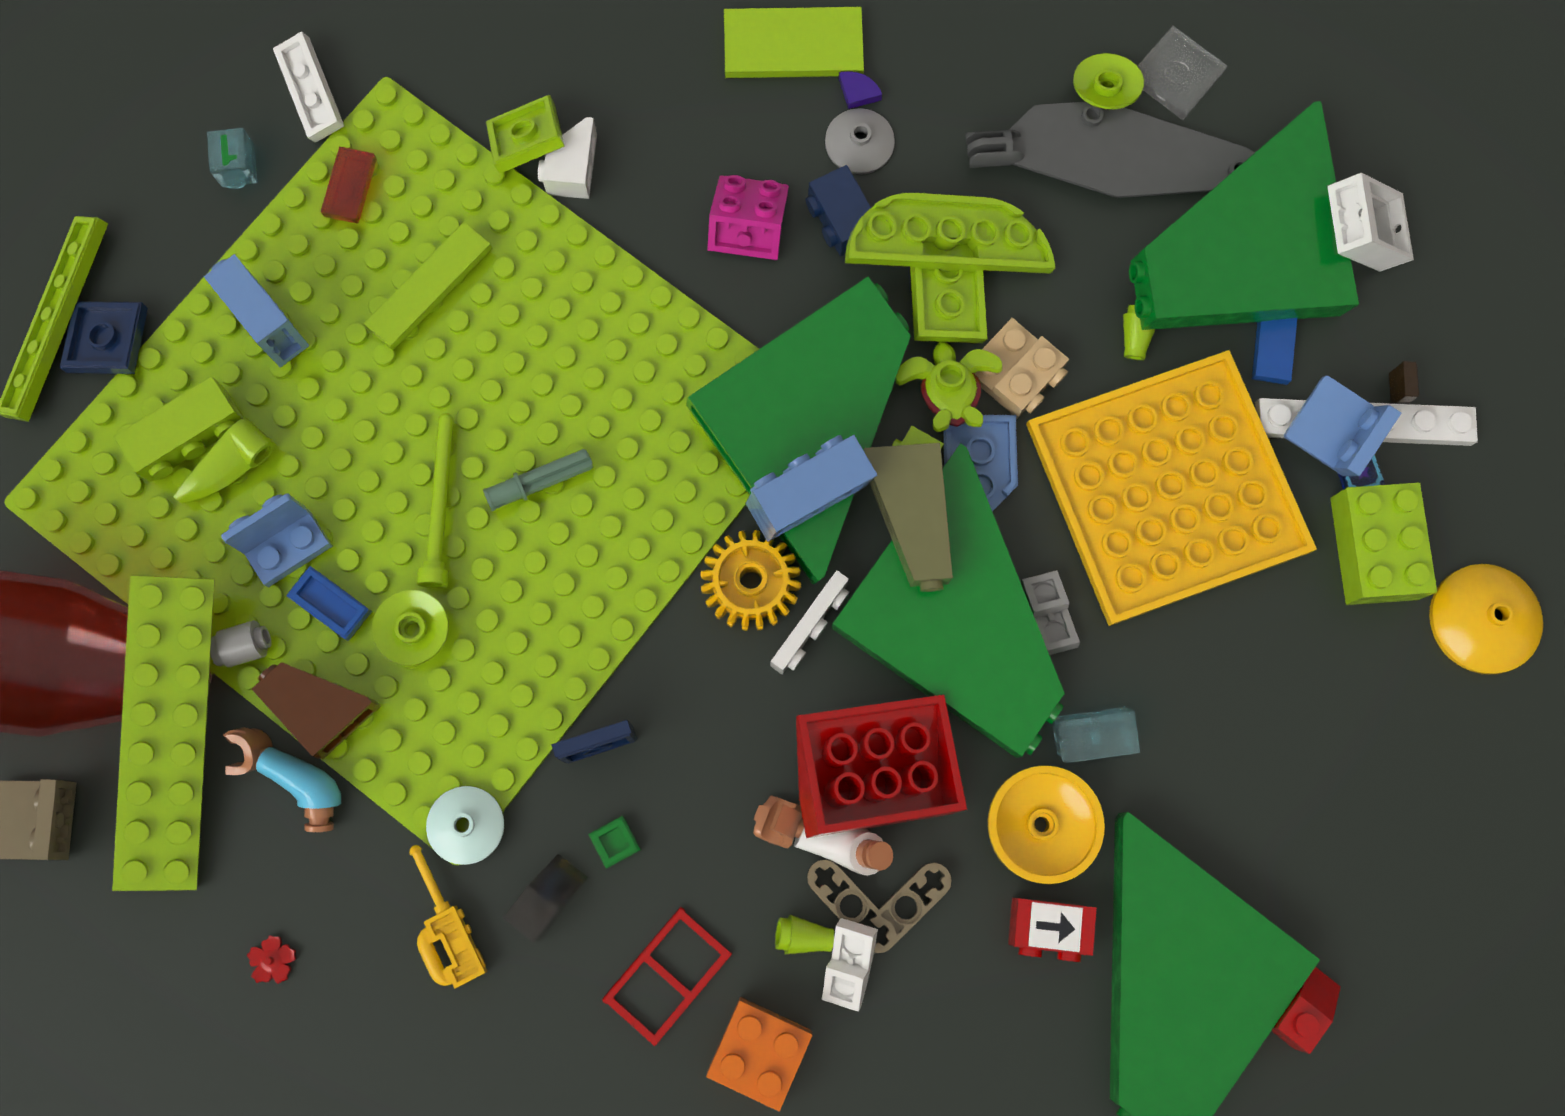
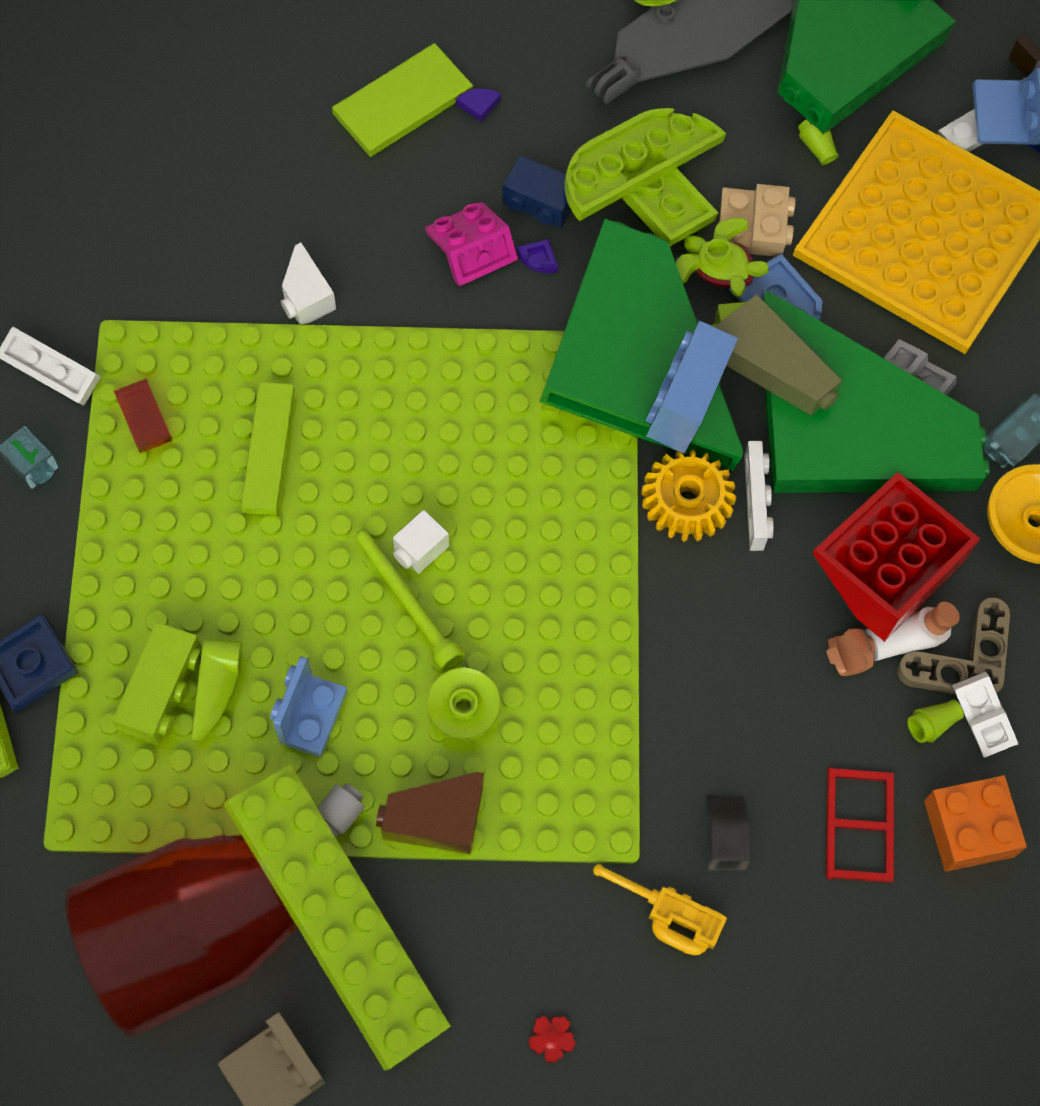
camera: 35 degrees left, 10 degrees down
(256, 310) = (153, 548): medium blue window -> none
(307, 783) = (476, 878): piece -> none
(329, 603) = (381, 734): blue tile -> none
(483, 460) = (420, 542): none -> white brick
(484, 829) = (619, 840): light aqua dish -> none
(524, 134) = (254, 289): lime tile -> none
(537, 479) = (463, 542): sand green axle -> none
(595, 742) = (674, 685): dark blue tile -> none
(614, 842) = (741, 756): green tile -> none
(798, 269) = (538, 256): none -> dark purple tile
(860, 155) = (506, 148): light grey dish -> none
(1274, 351) = (921, 93): blue tile -> none

